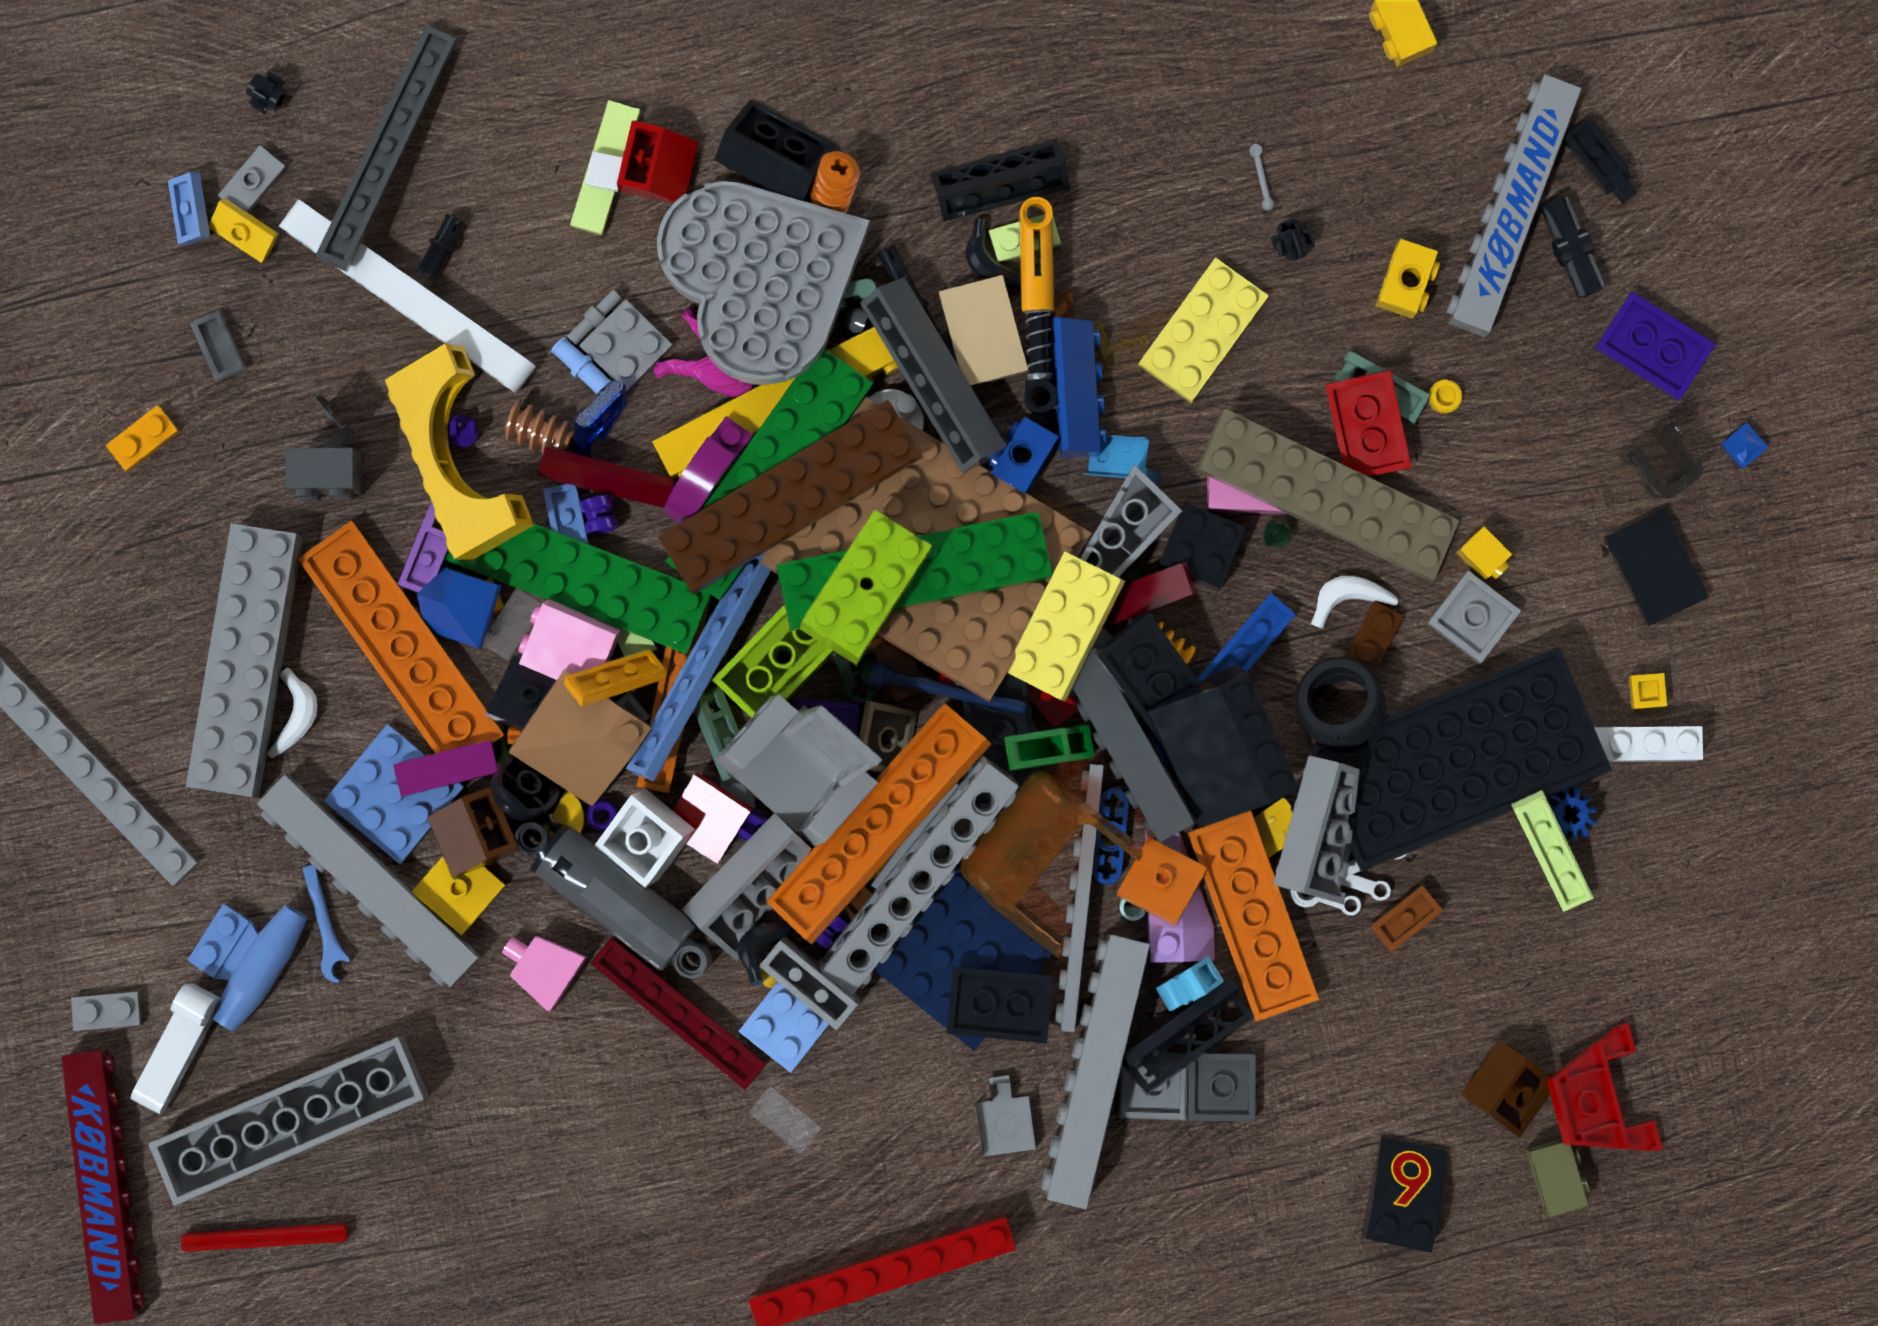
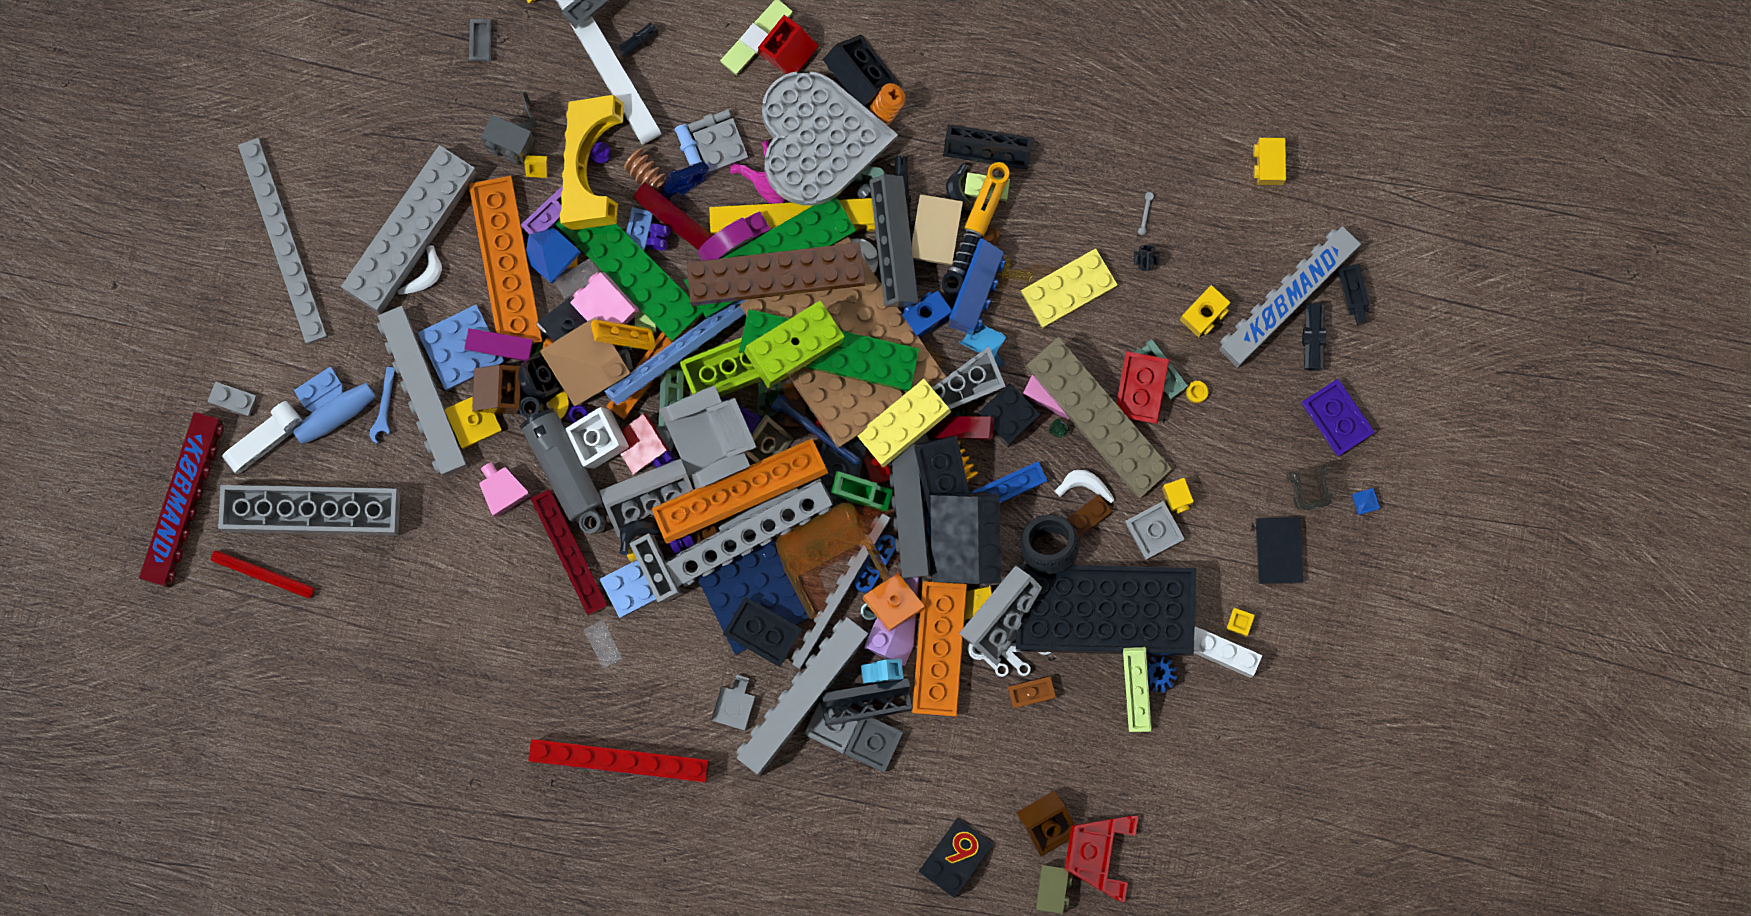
camera: 25 degrees right, 5 degrees down
(142, 438) = (411, 74): light orange plate -> none
(381, 491) = (536, 166): none -> yellow plate

